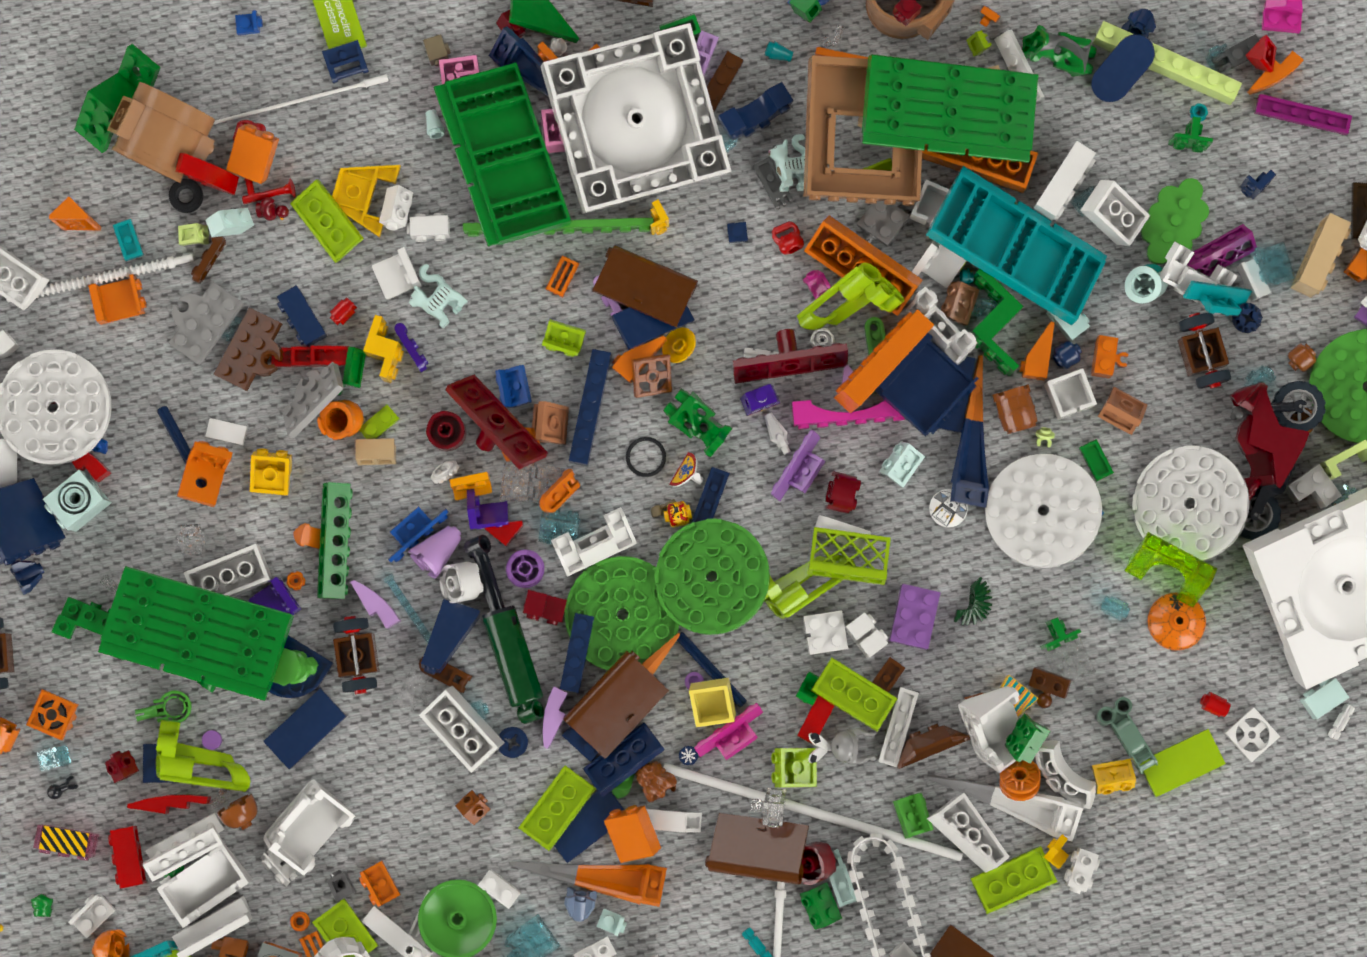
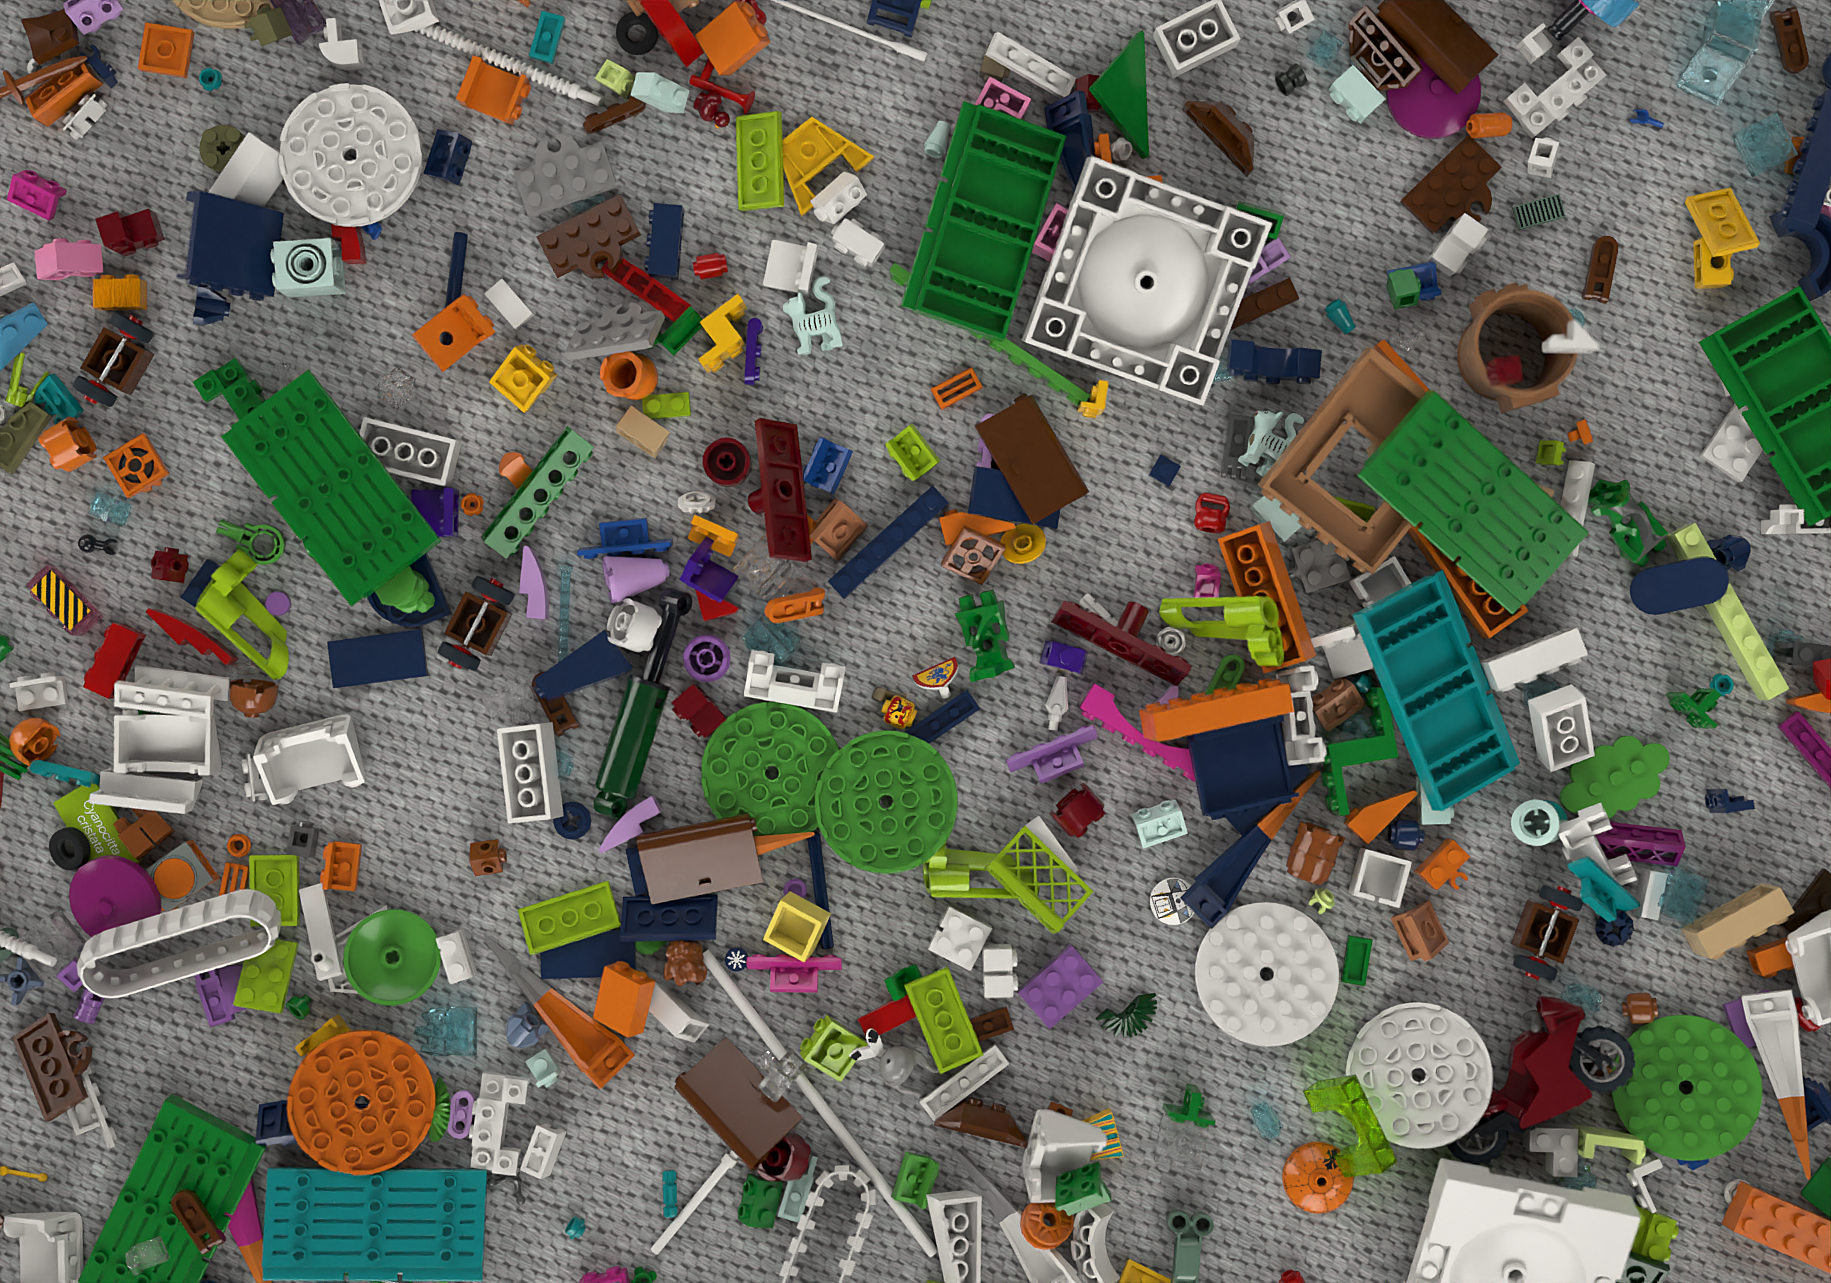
camera: 35 degrees right, 5 degrees up
(117, 363) = (448, 156): none -> dark blue bracket
(460, 34) = (1030, 66): none -> white plate
(577, 652) = (698, 779): dark blue plate -> none
(640, 473) = (909, 609): black tyre -> none
(838, 210) = (1282, 523): none -> light aqua brick
(1050, 684) = (1145, 1149): reddish brown plate -> none

